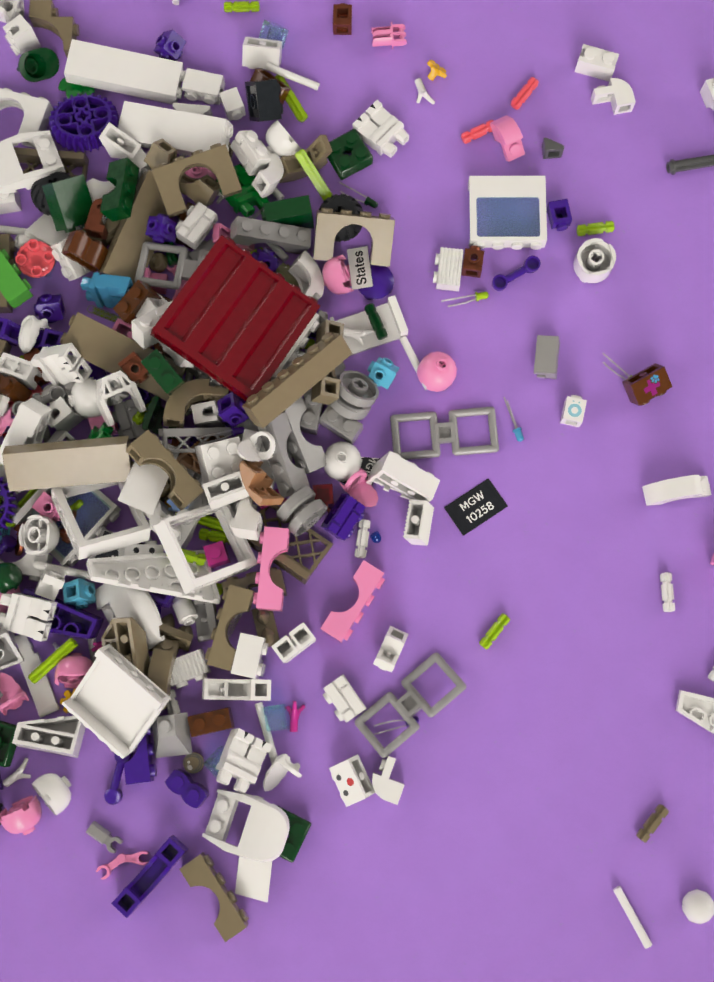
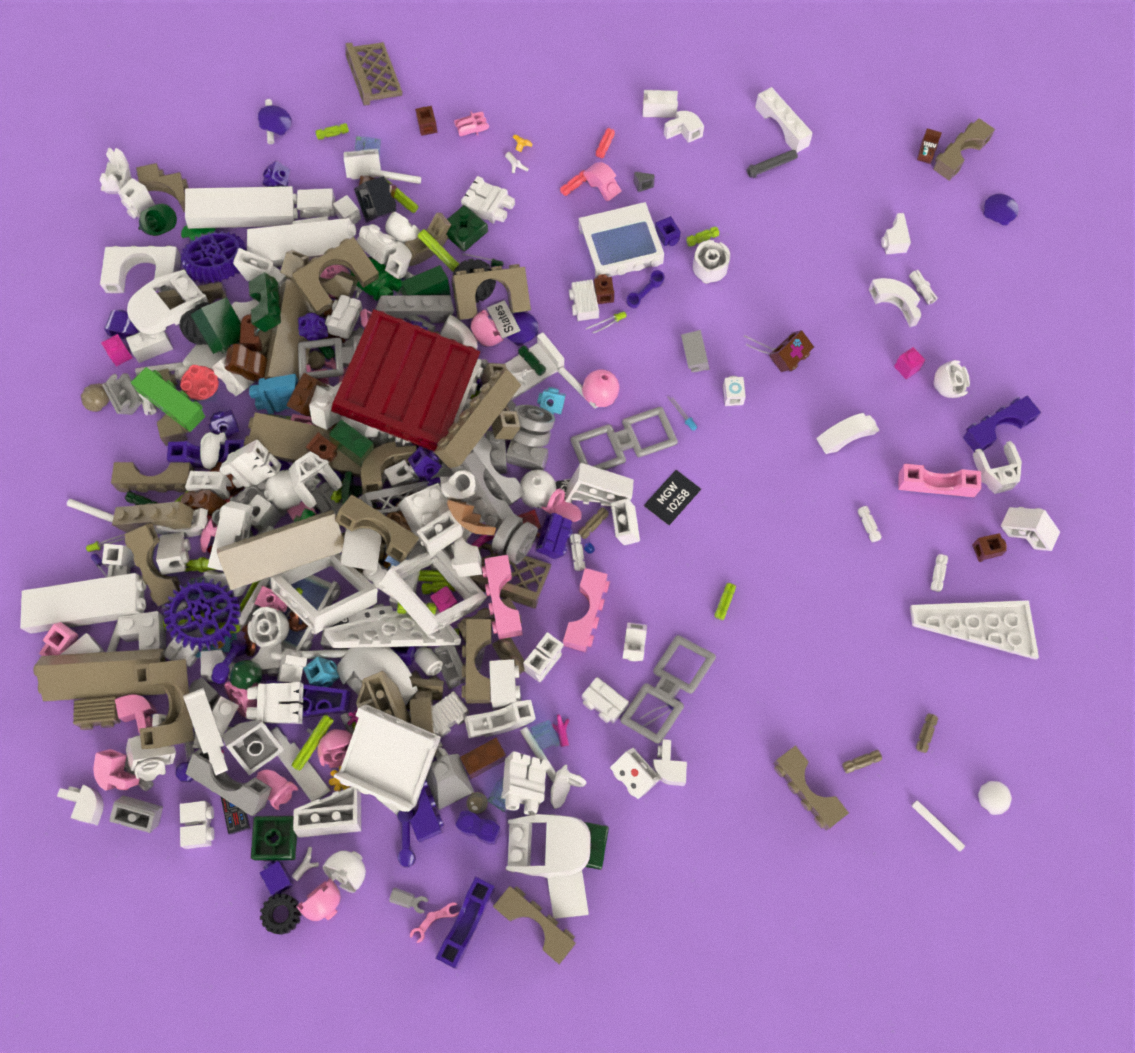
camera: 20 degrees left, 10 degrees down
(387, 512) = (593, 523): none -> dark tan axle
(527, 871) = (825, 809): none -> dark tan arch
(578, 832) = (862, 761): none -> dark tan axle

